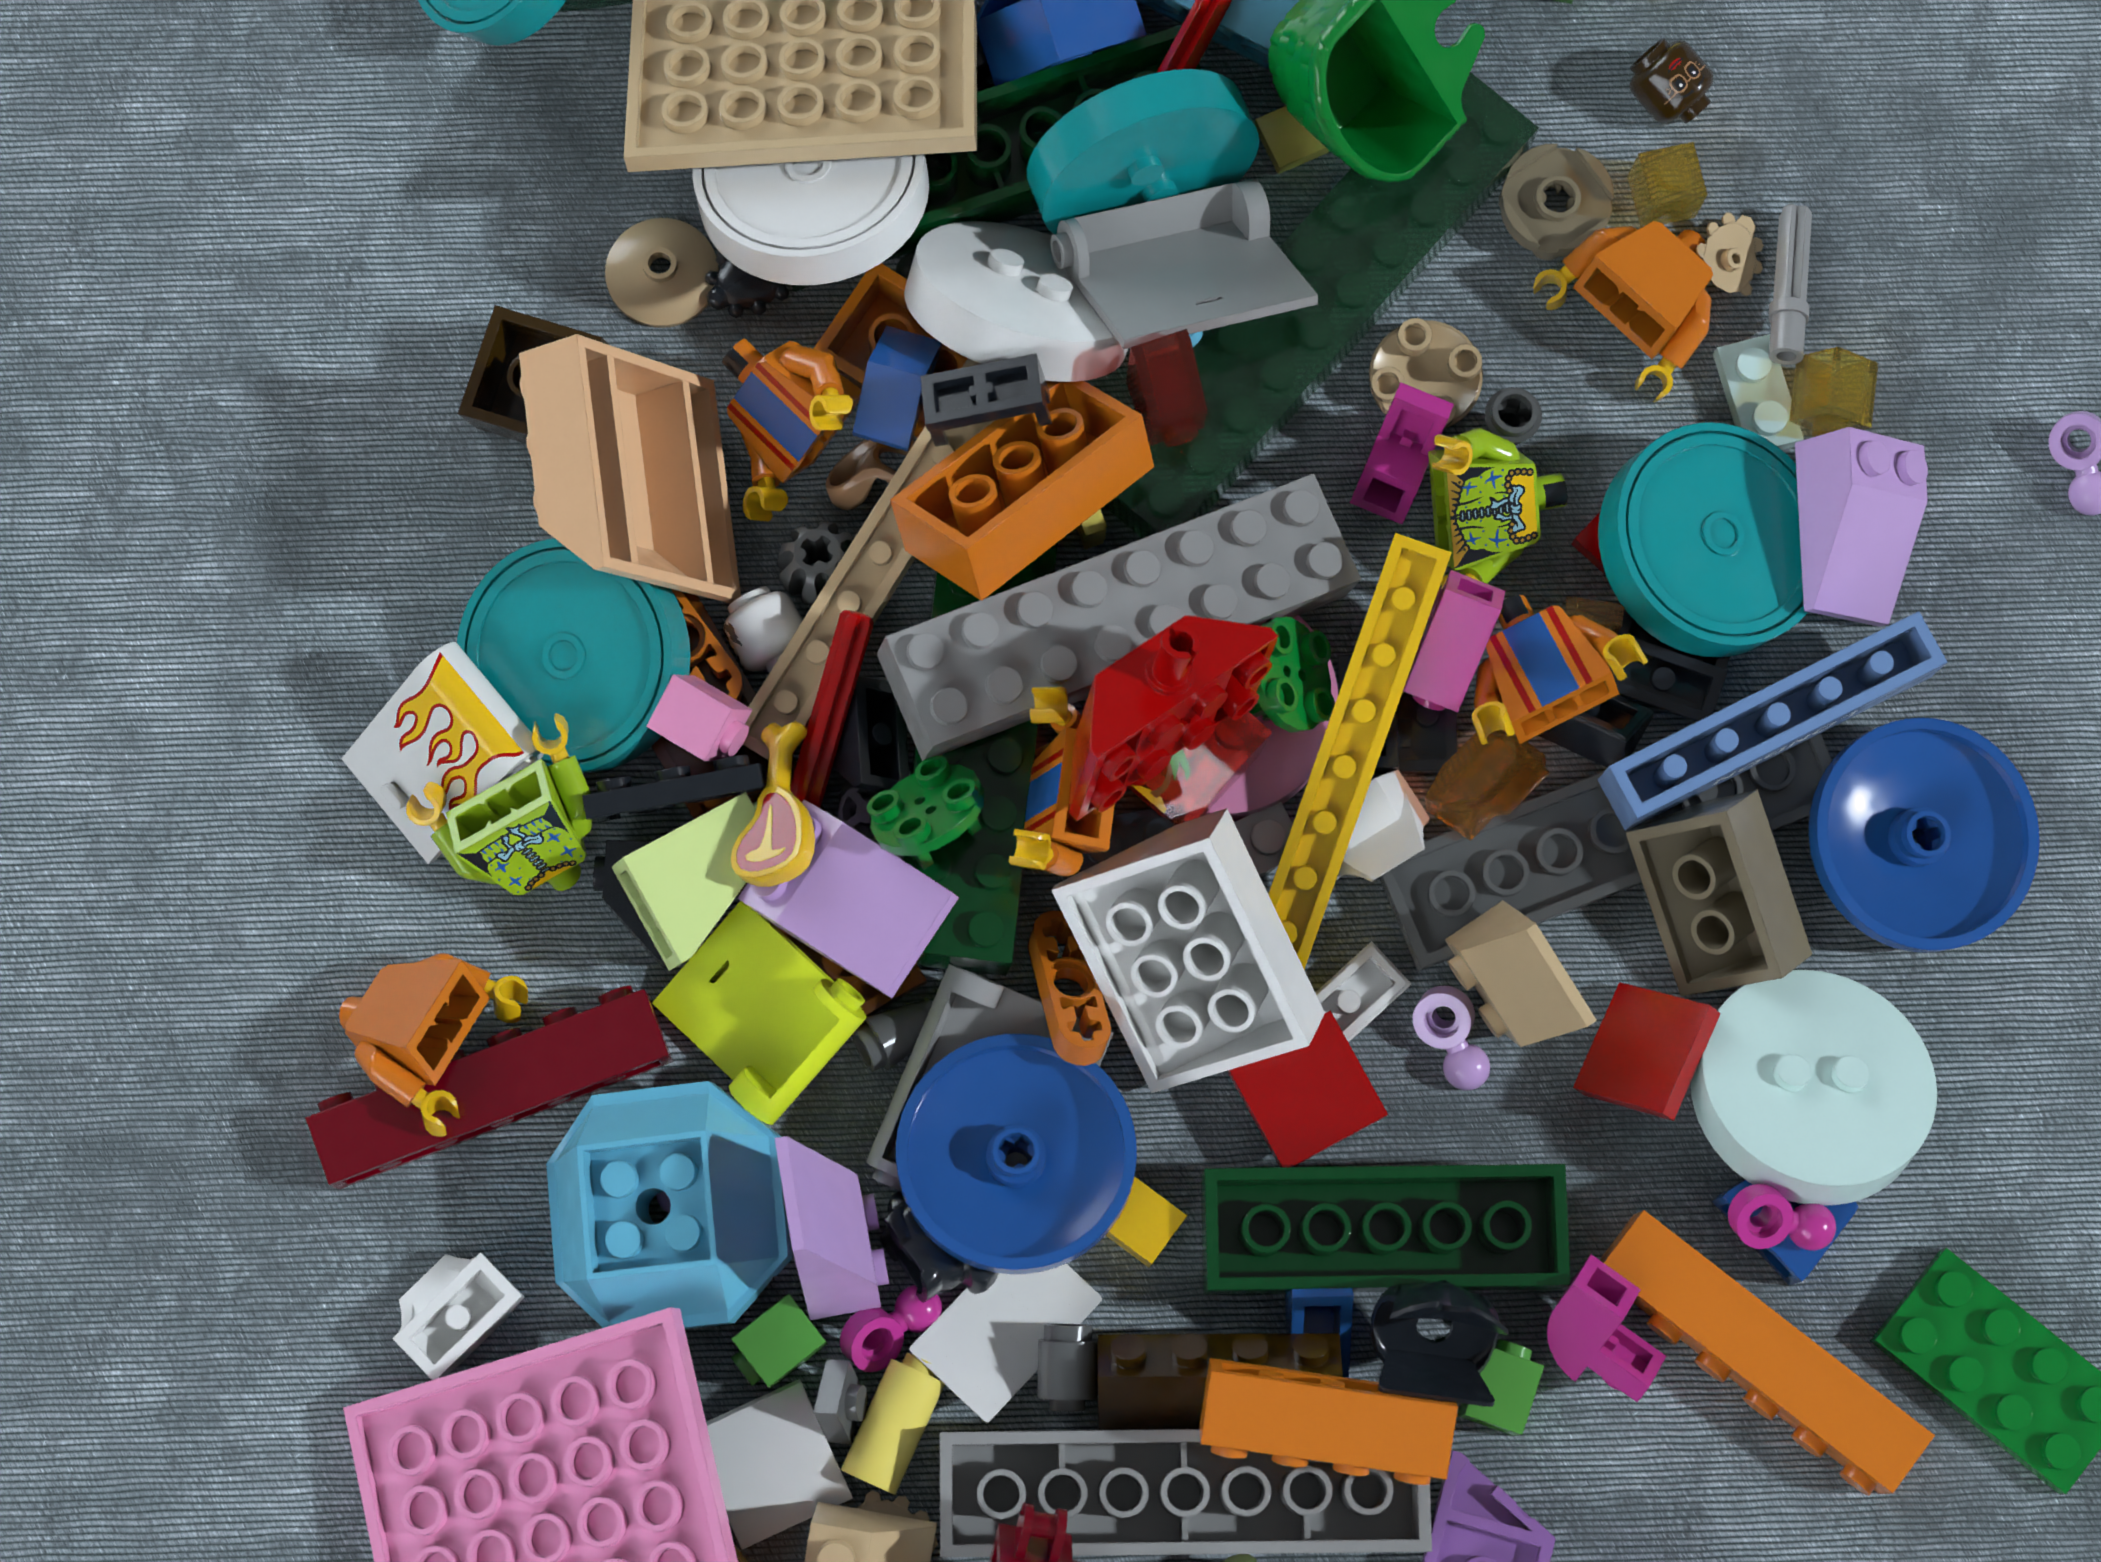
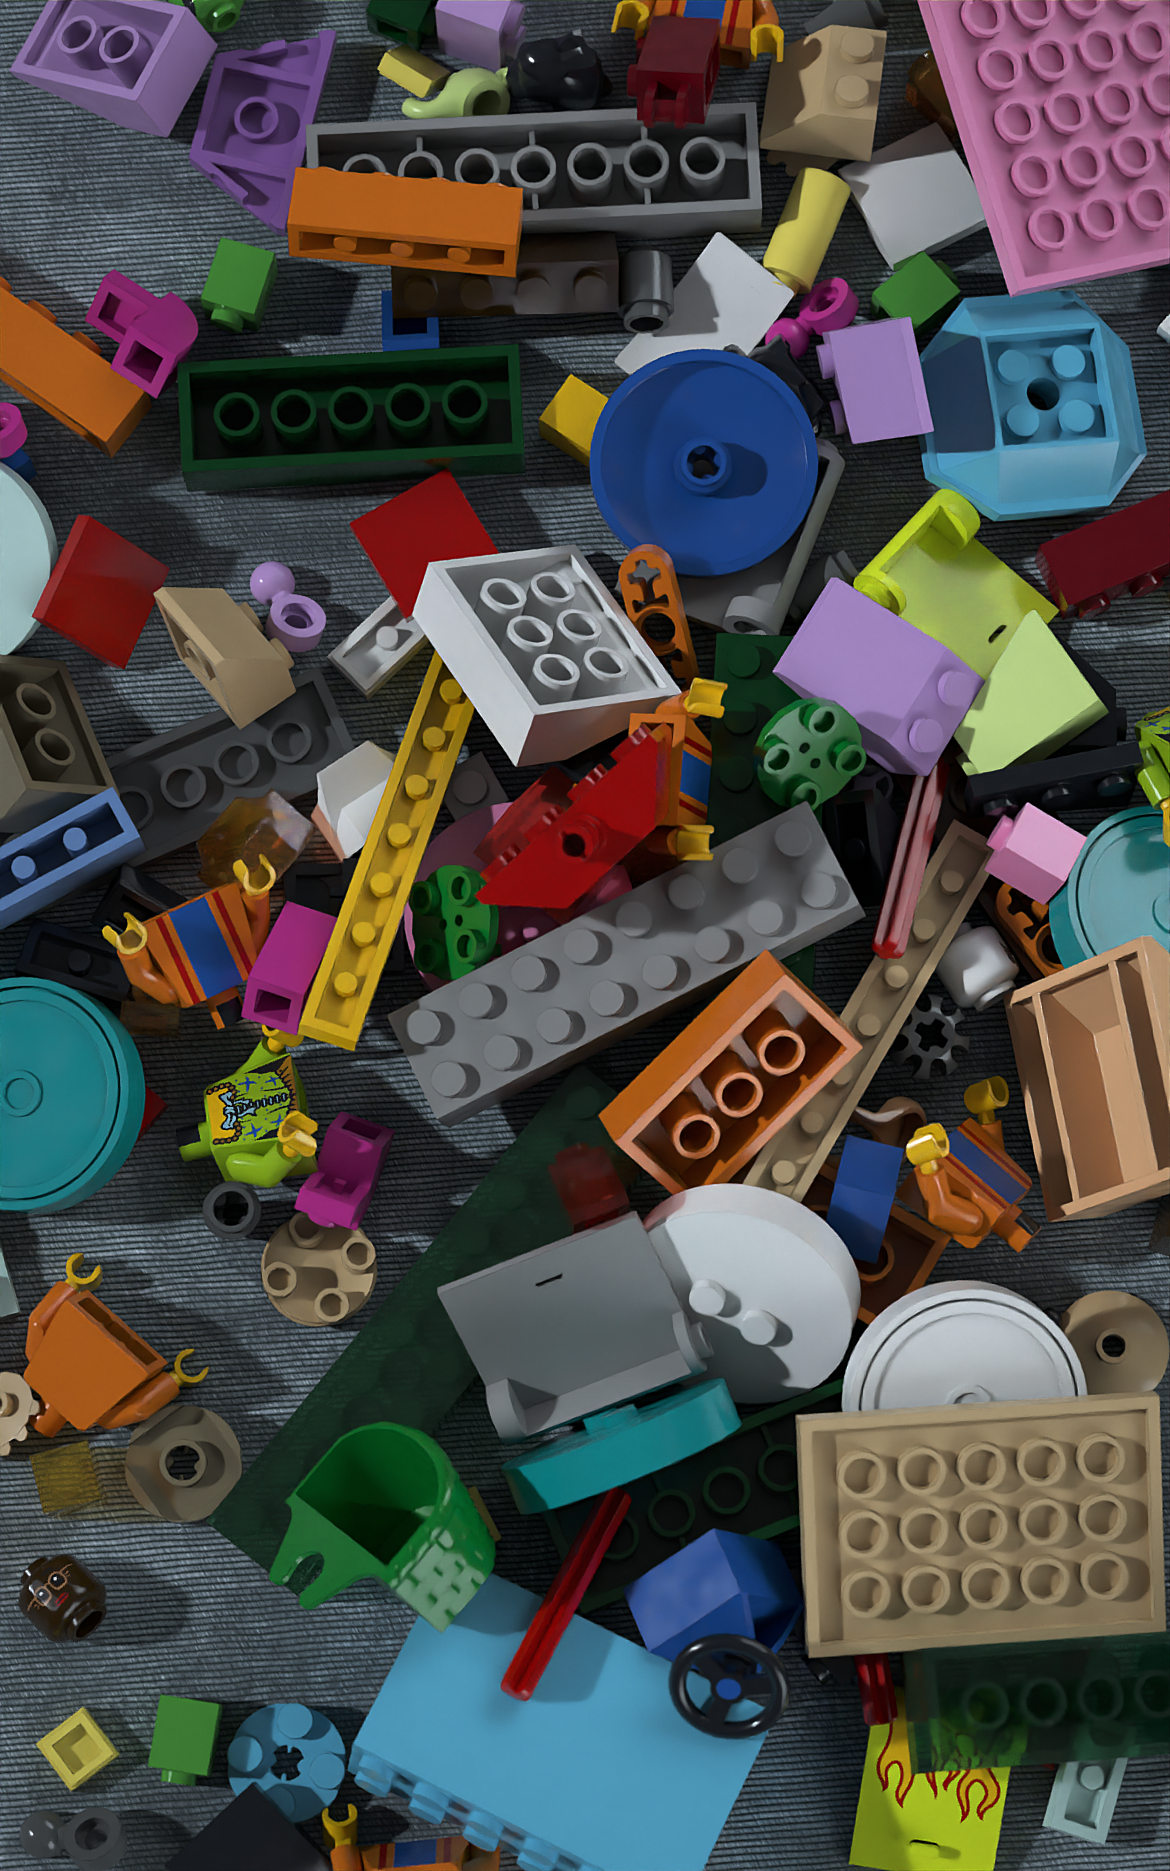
camera: 175 degrees left, 0 degrees up
(781, 834) = (949, 727): yellow piece -> none
(840, 1401) = (854, 246): dark grey plate -> none
(984, 395) = (773, 1152): black hinge -> none
(1435, 1367) = (305, 295): black piece -> none

